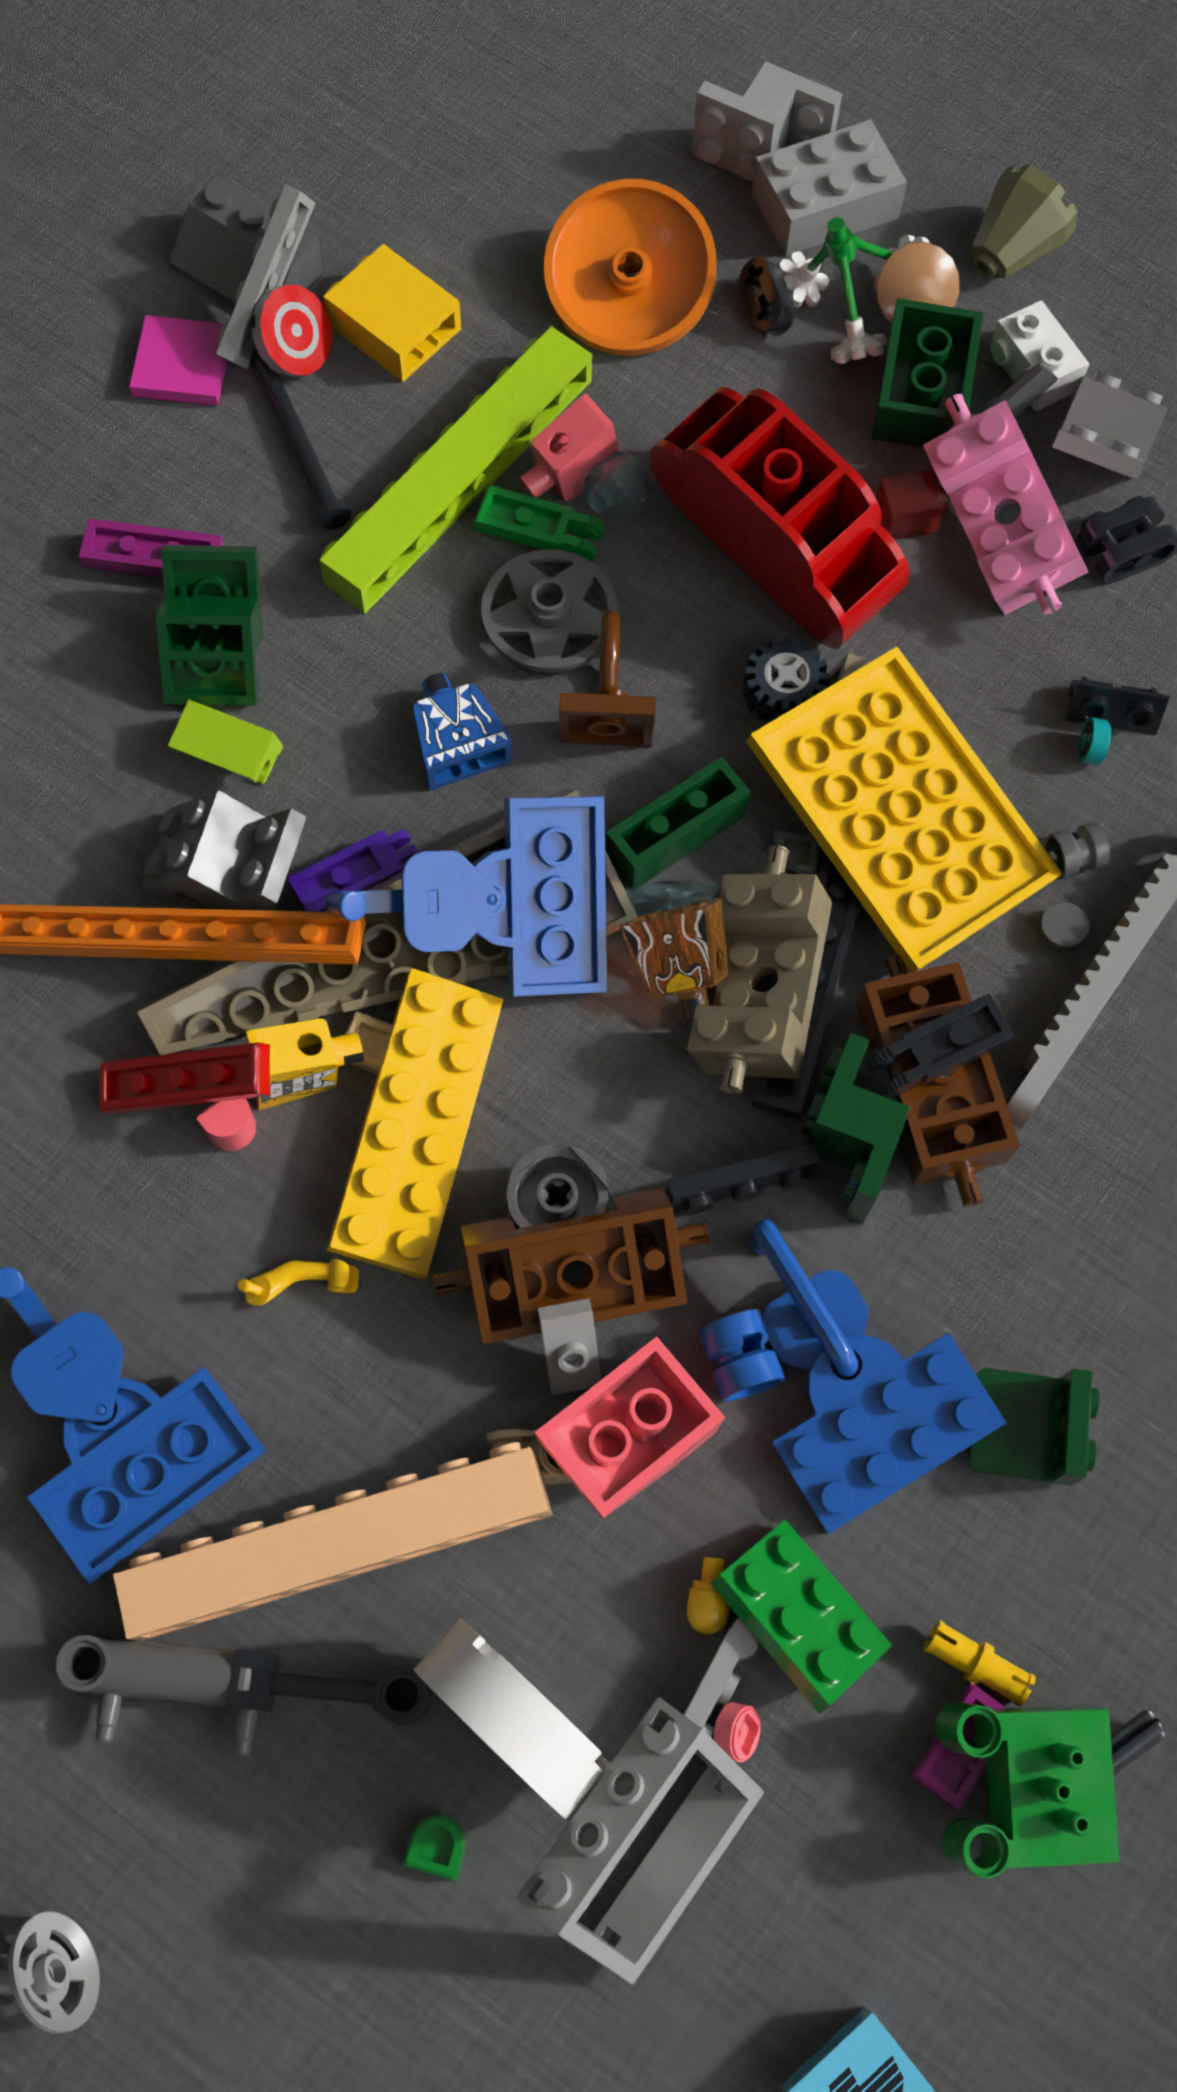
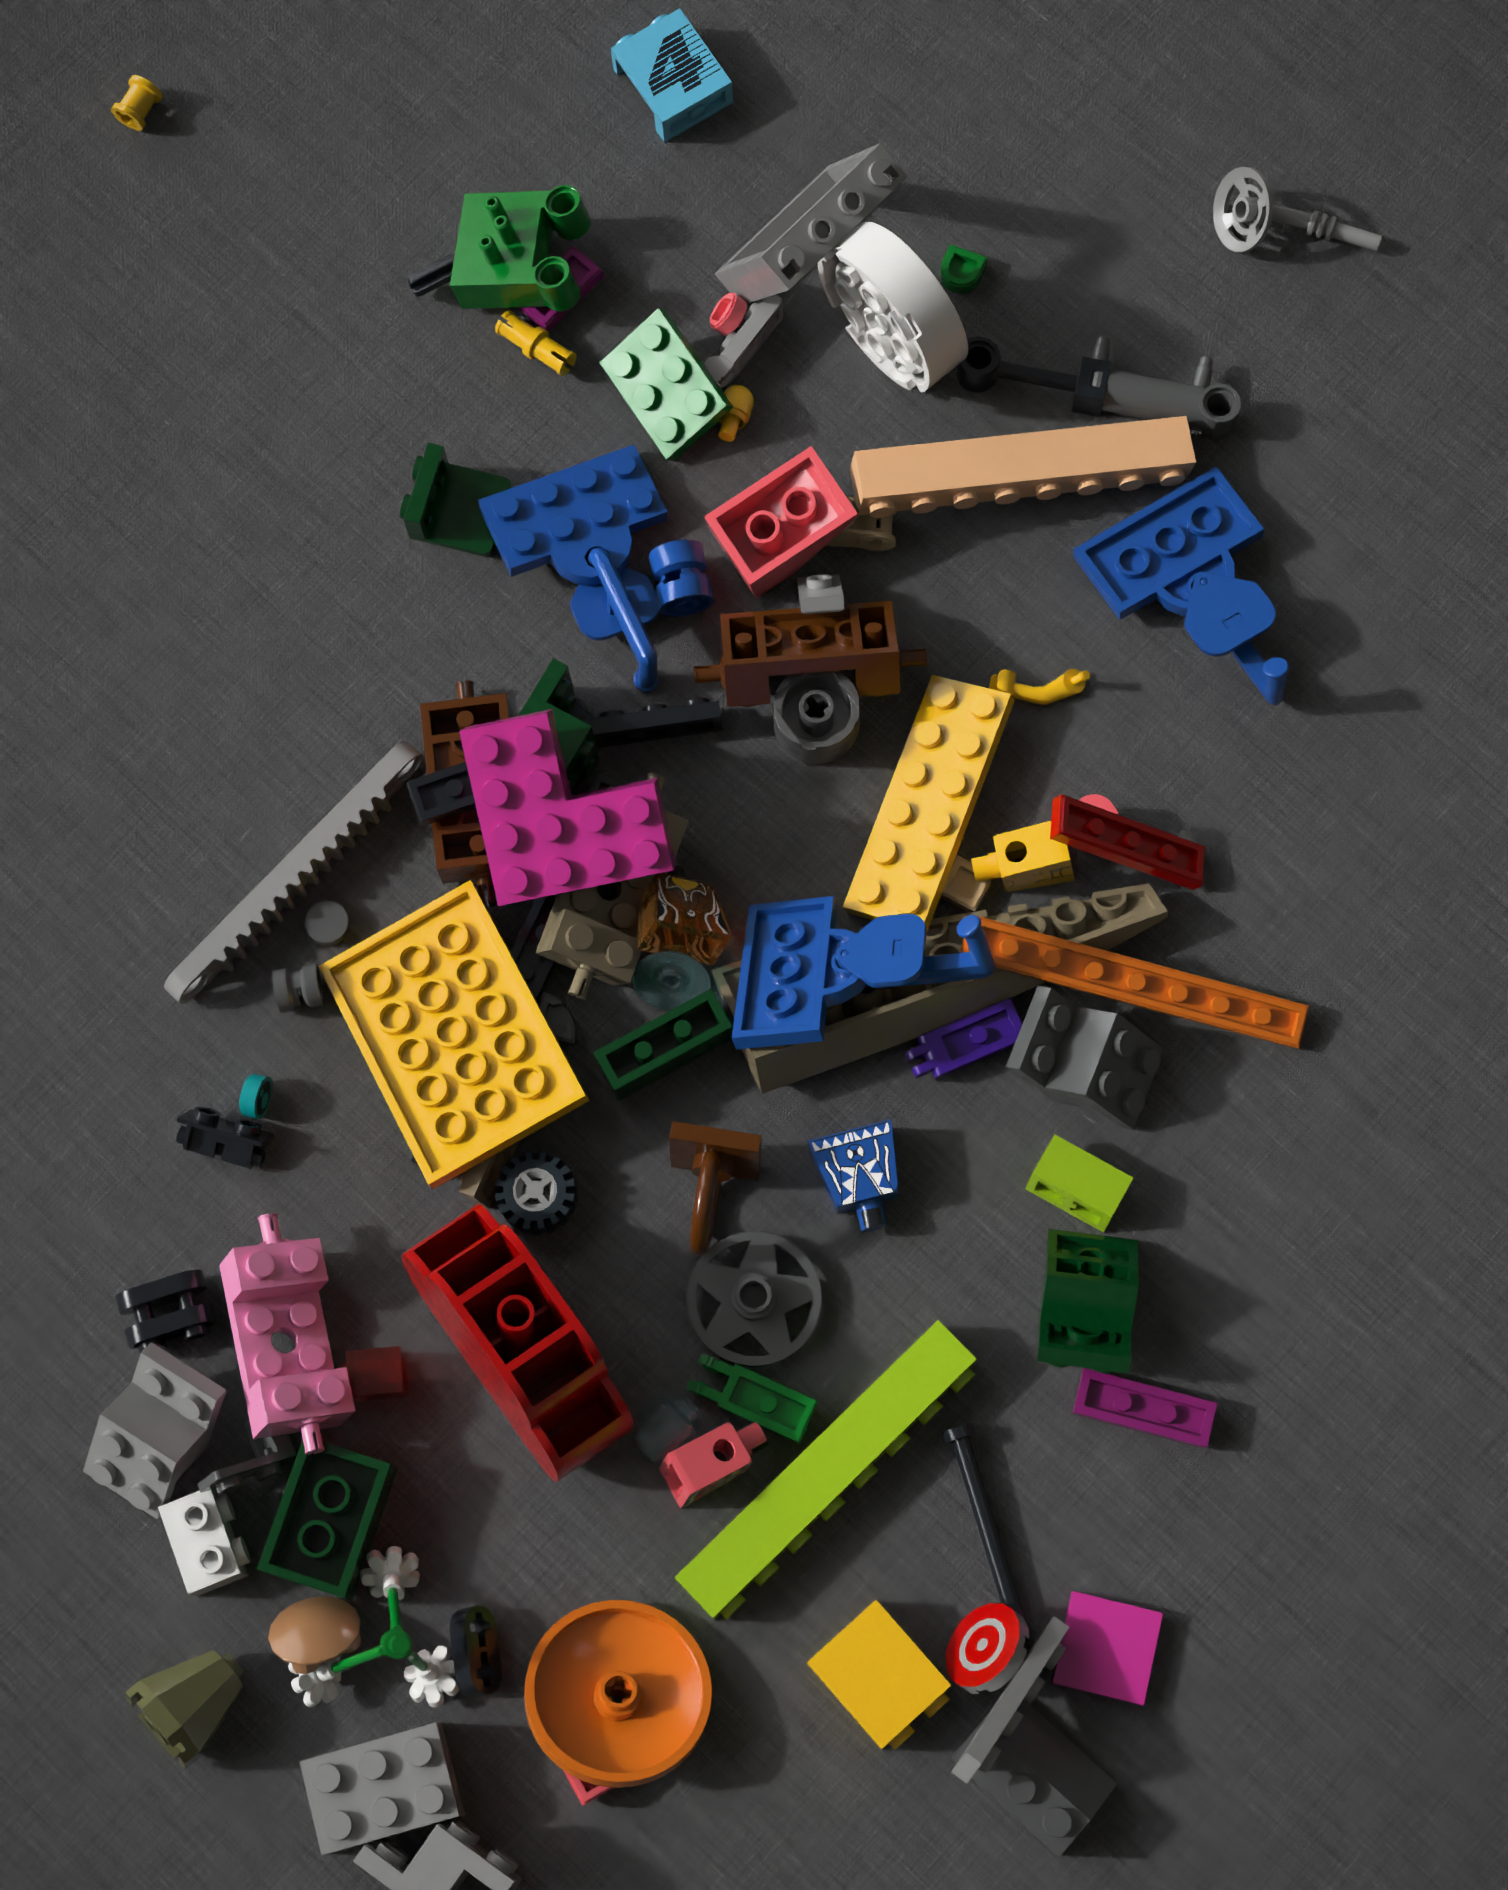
camera: 165 degrees left, 5 degrees up
(839, 982) = (541, 835): none -> dark pink piece

